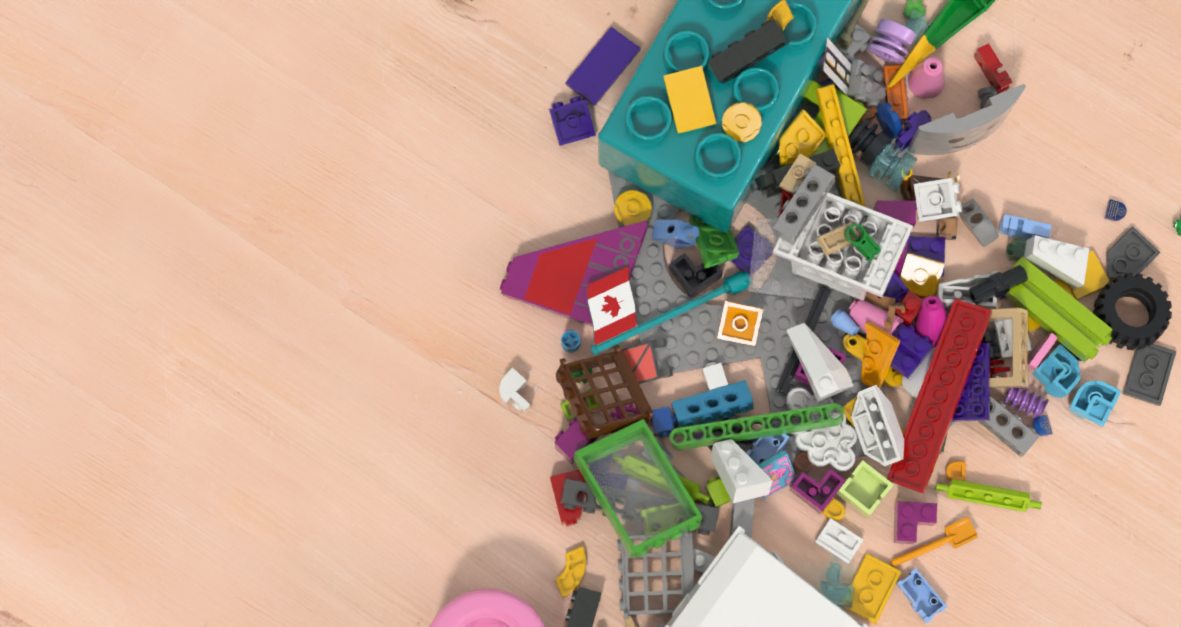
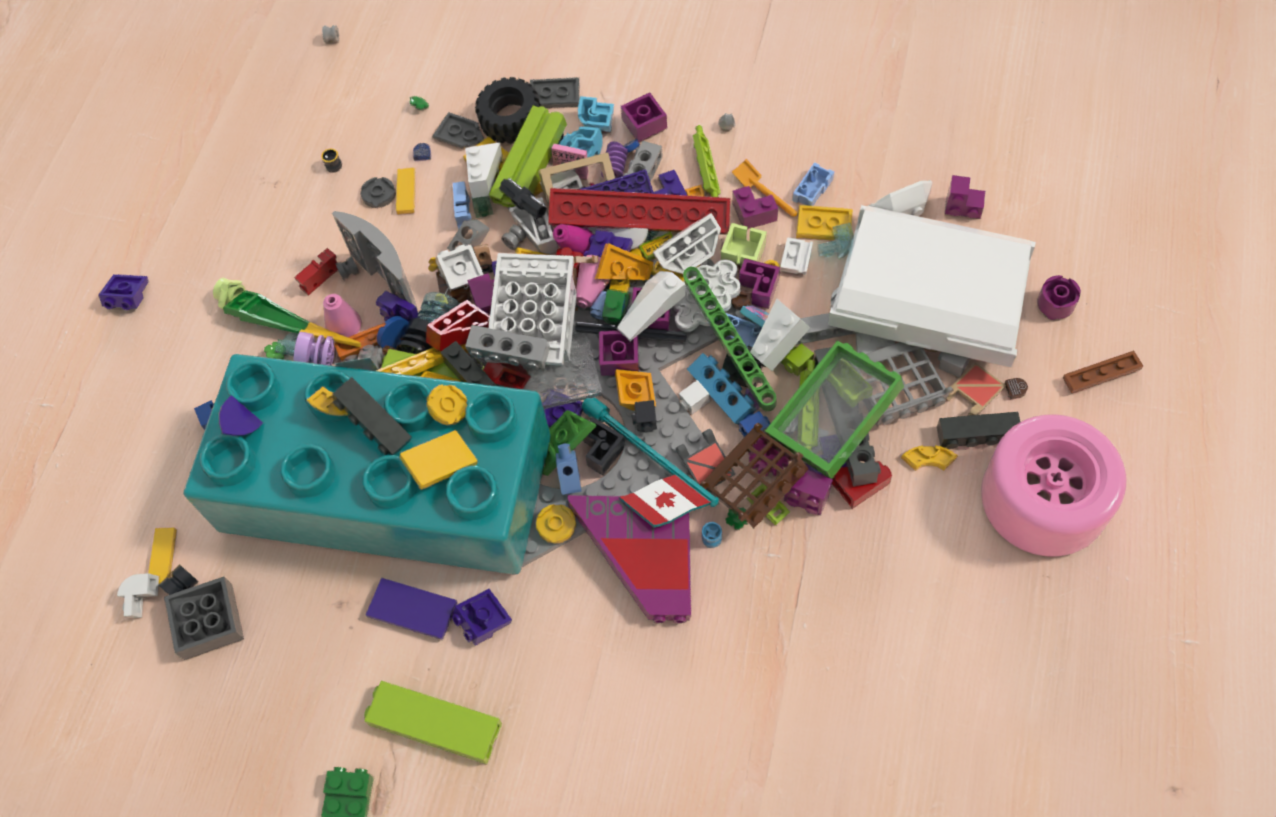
camera: 105 degrees left, 15 degrees down
(495, 56) = (433, 721): none -> lime brick
(509, 388) = (781, 573): white brick -> none
(707, 321) = (645, 416): none -> black brick
(780, 316) = (617, 353): none -> magenta brick
(796, 173) = (477, 369): tan plate -> none
(830, 333) = (615, 306): none -> green torso
(835, 240) = (532, 306): tan plate -> none
(862, 176) = (455, 325): none -> red wedge
(864, 243) = (529, 281): green piece -> none
(902, 406) = (650, 246): none -> tile
(966, 268) = (513, 237): none -> light grey wheel
(967, 449) = (671, 184): none -> dark purple plate
(1038, 540) = (727, 121): none -> light grey plate
(1069, 181) = (405, 191): none -> yellow tile
(1073, 451) = (644, 117): none -> magenta brick
(1078, 153) = (378, 192): none -> dark grey tile
(1138, 114) = (331, 160): none -> black wheel

